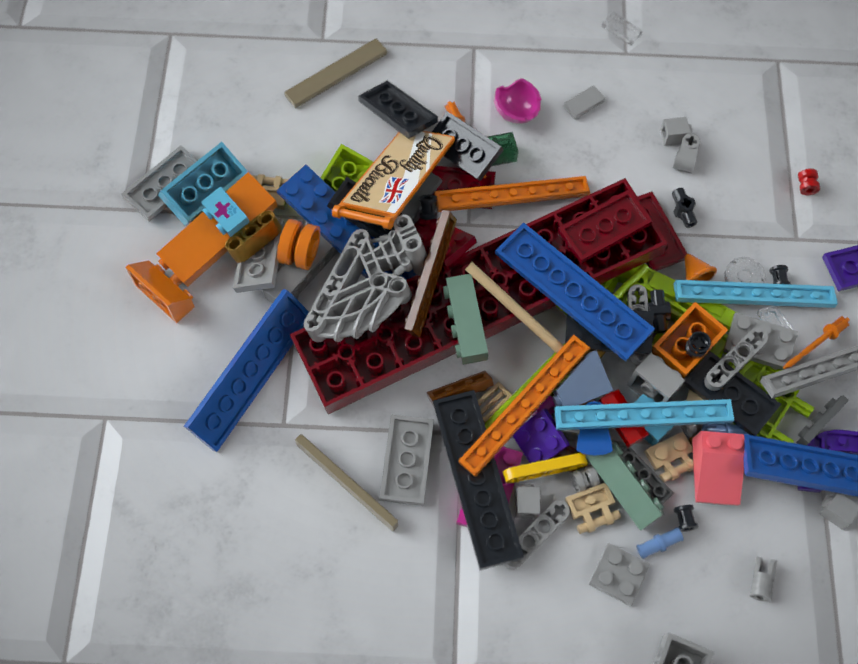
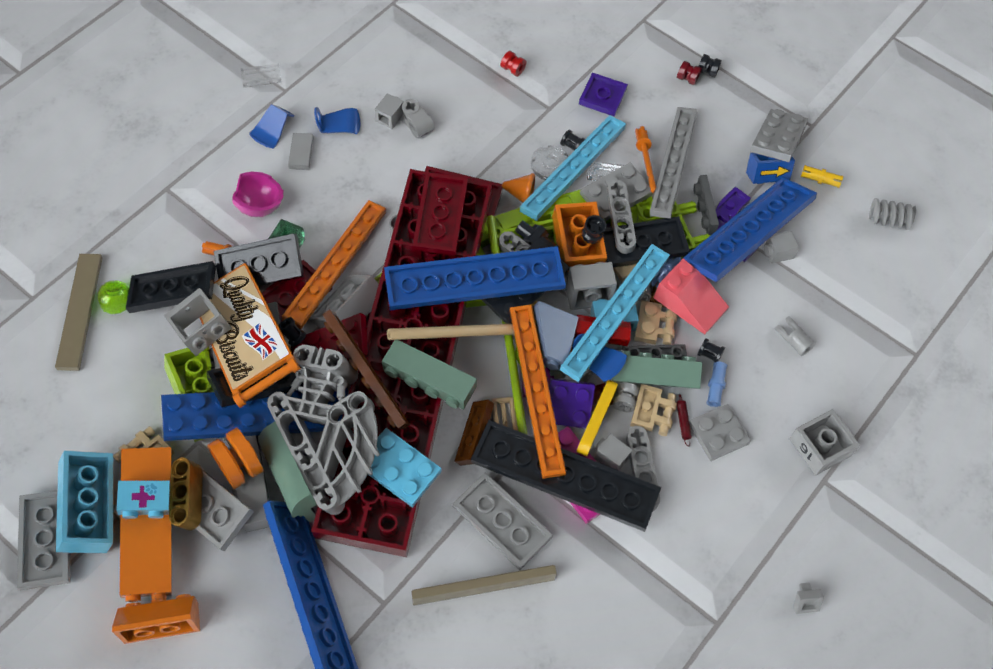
camera: 55 degrees left, 5 degrees down
(312, 289) = (287, 473): none -> sand green brick
(363, 81) = (113, 296): none -> clear neon green hair
(375, 132) = (181, 318): none -> light grey window
(381, 356) = (402, 468): none -> medium azure plate
(486, 225) = (350, 298): none -> light grey slope
(582, 68) = (270, 126): none -> piece
(605, 538) = (683, 420): none -> dark red piece
(634, 107) = (338, 122): none -> blue piece
(684, 207) = (460, 156): black axle -> none

